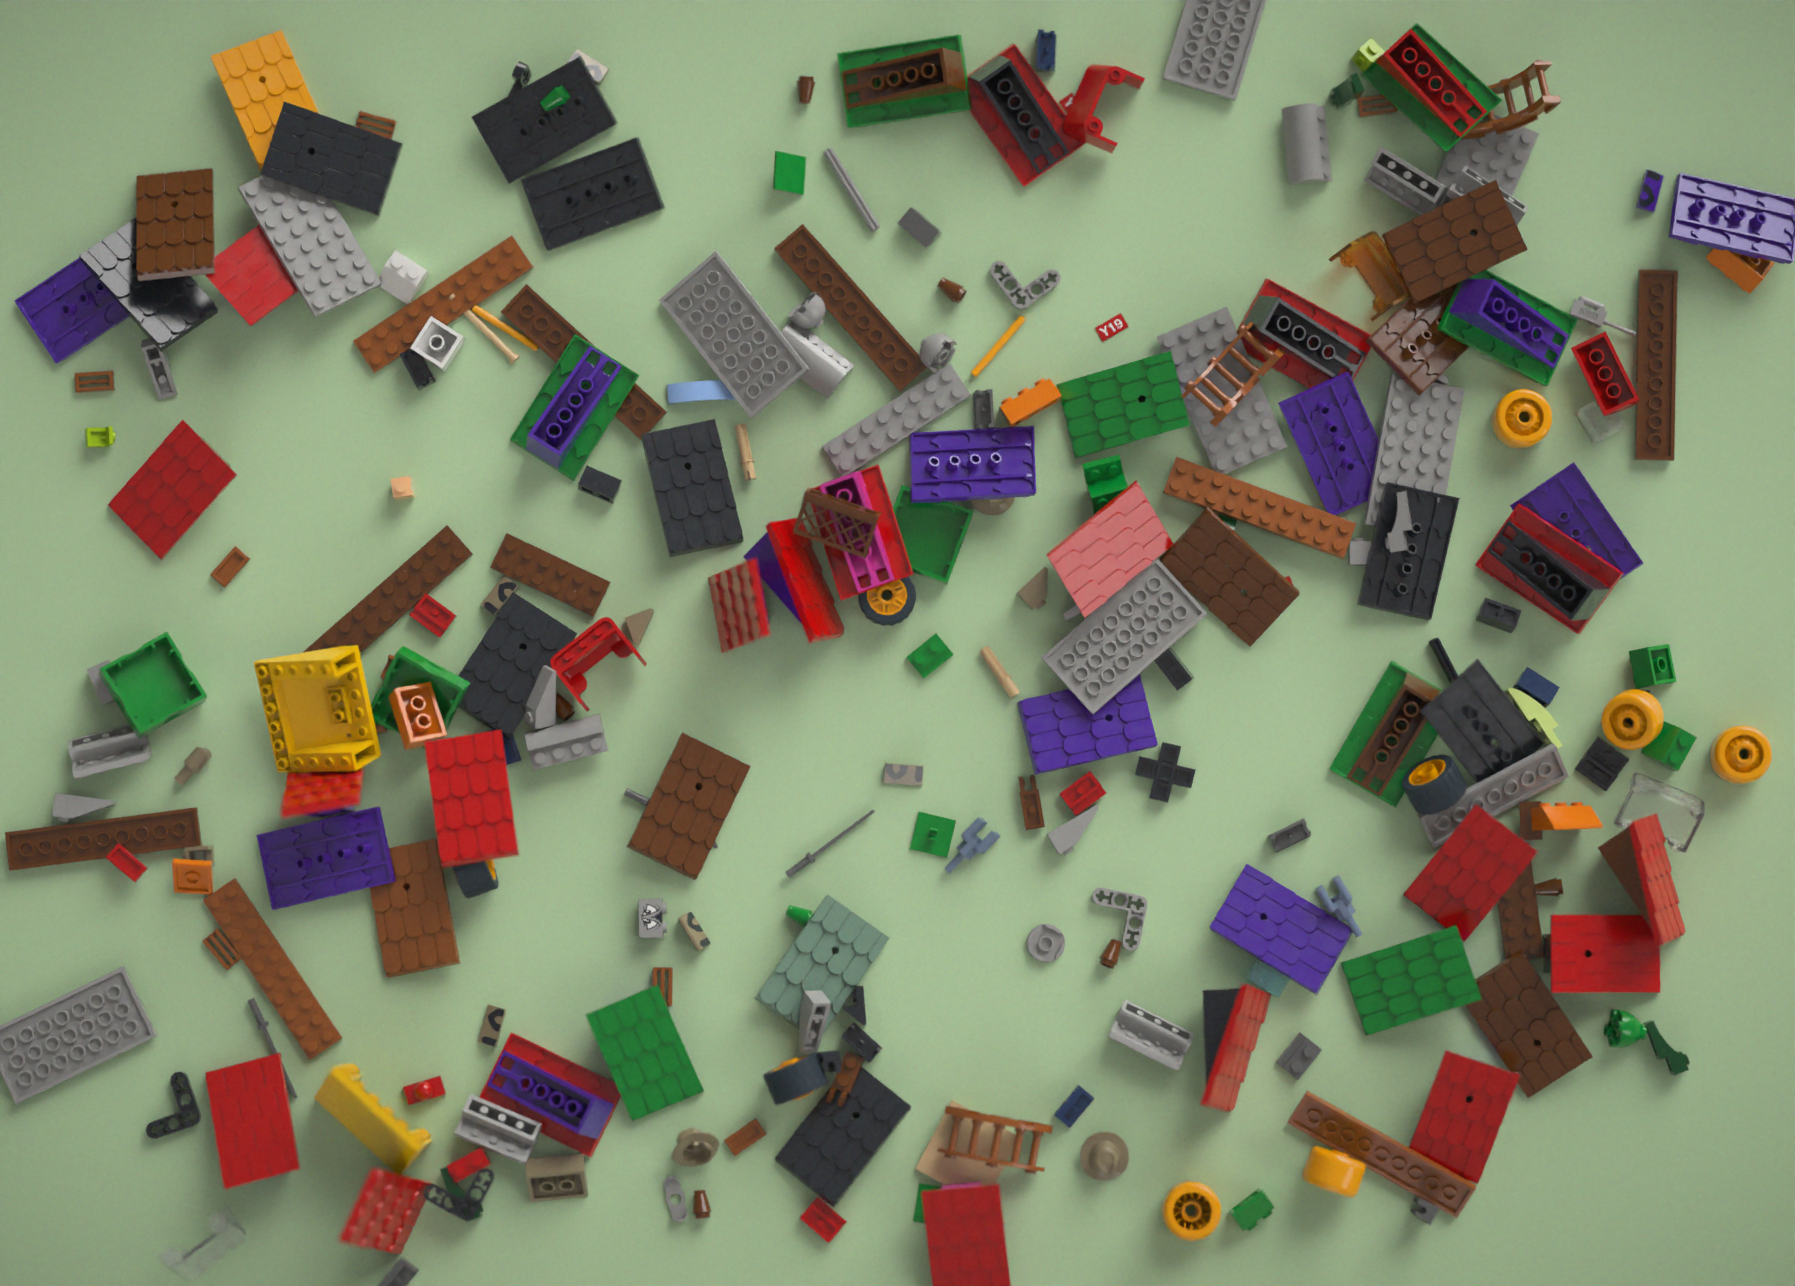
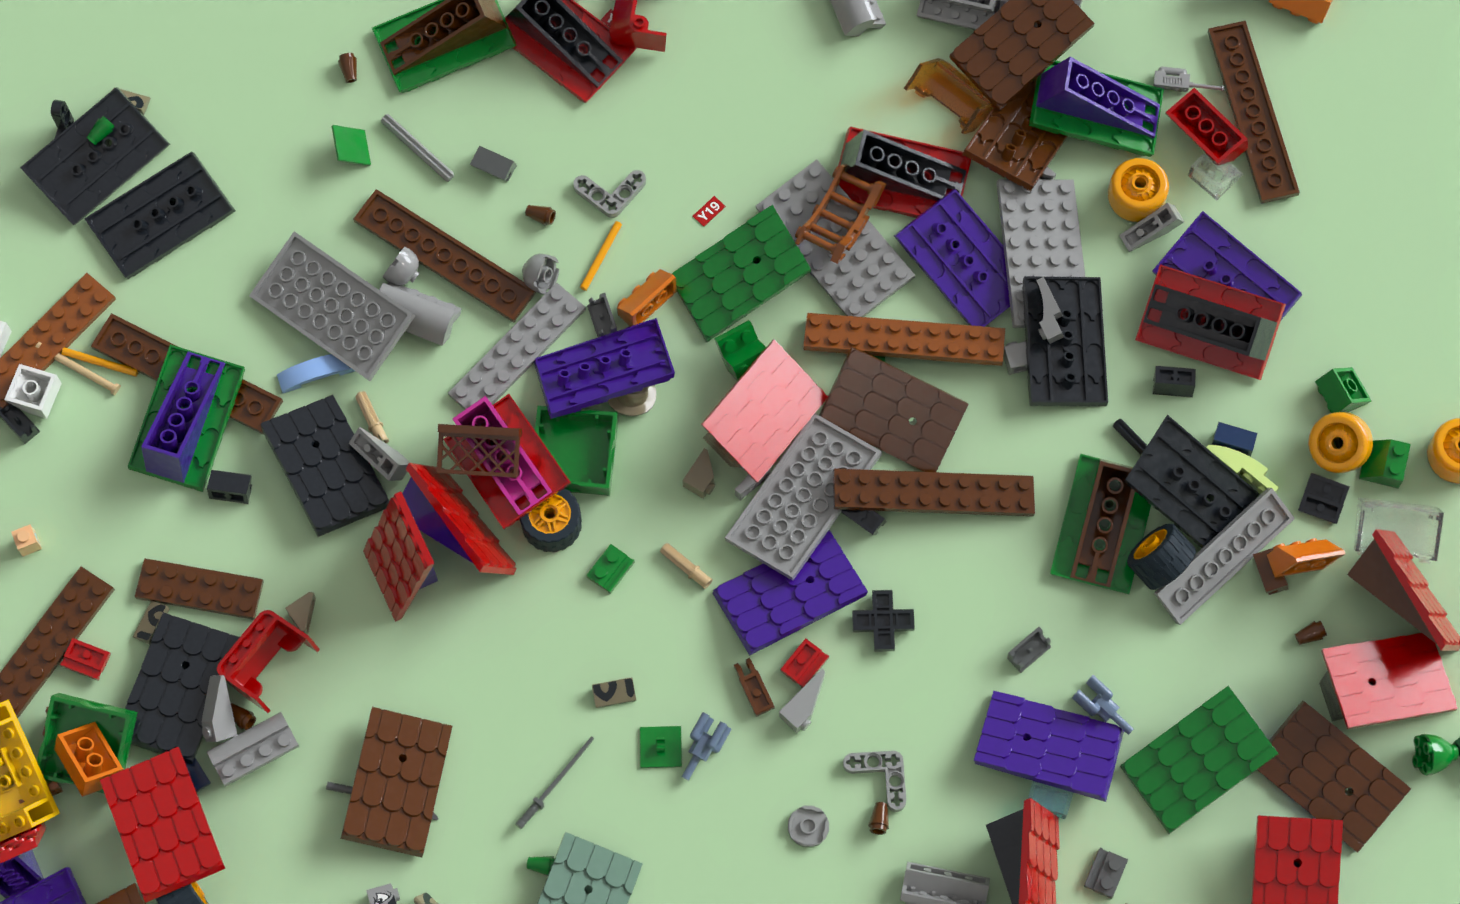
camera: 10 degrees left, 15 degrees down
(745, 493) = (380, 455): none -> light grey slope
(1244, 665) = (933, 492): none -> reddish brown plate
(1470, 872) = (1225, 631): red piece -> none
(1521, 918) = (1281, 655): reddish brown plate -> none
(1524, 457) = (1152, 227): none -> light grey slope

